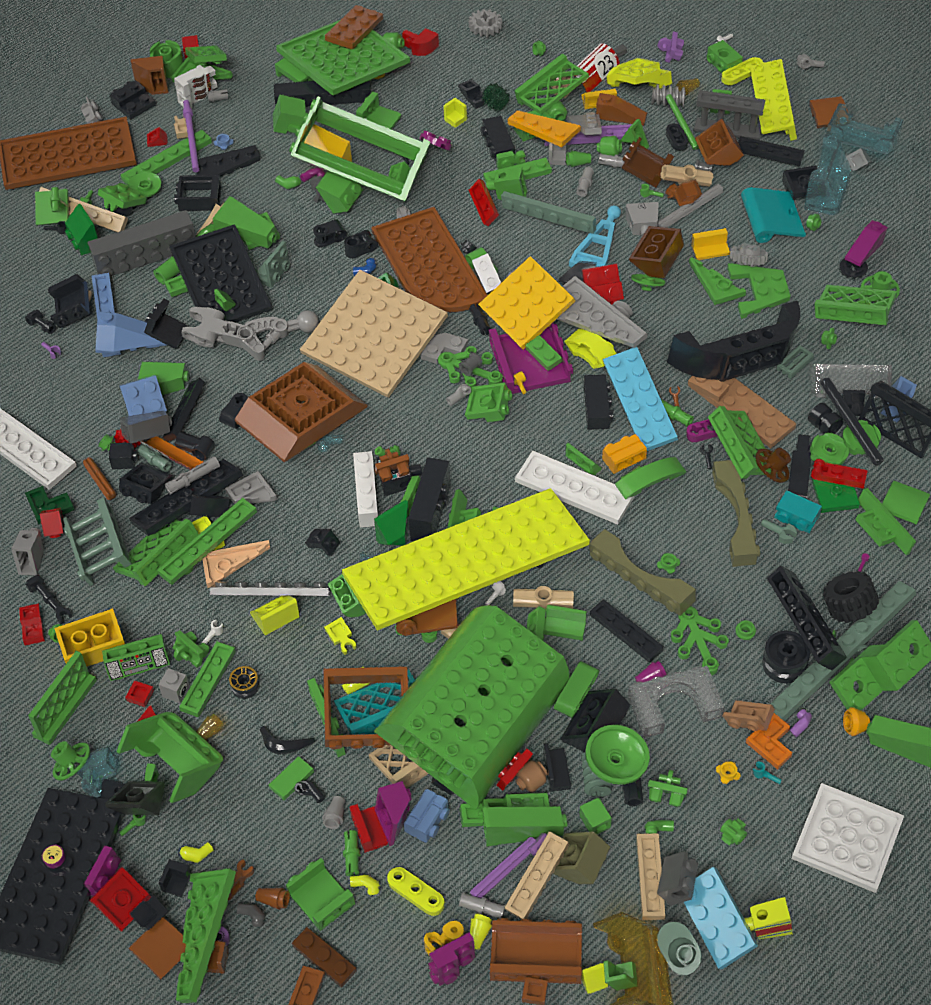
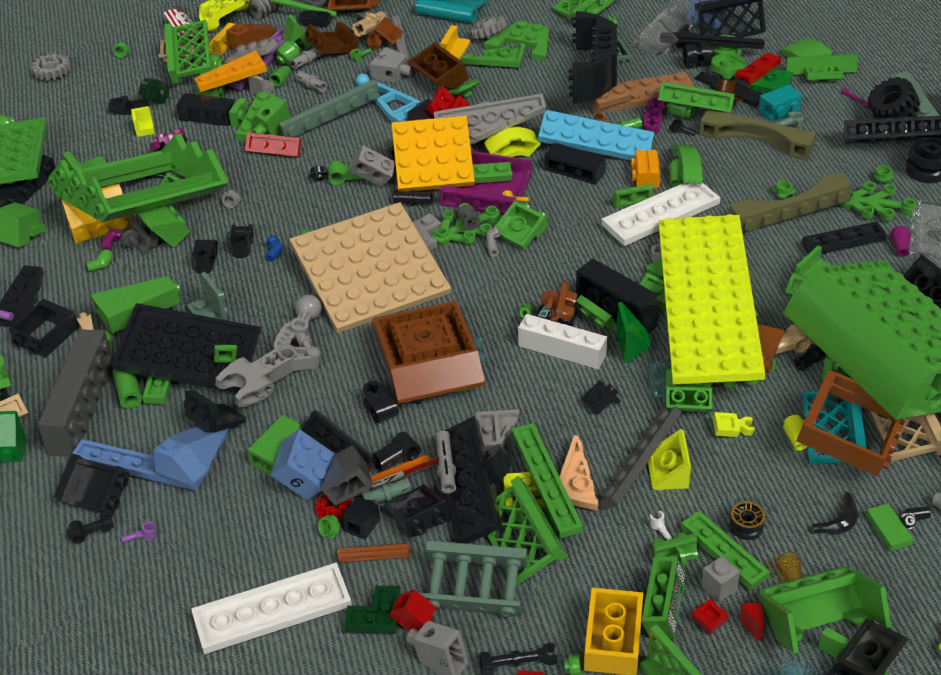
camera: 60 degrees left, 10 degrees down
(317, 693) = (824, 470): bright green plate -> none
(421, 44) = (26, 110): red brick -> none
(429, 261) = (306, 202): dark orange plate -> none
(533, 597) = (777, 273): tan piece -> none

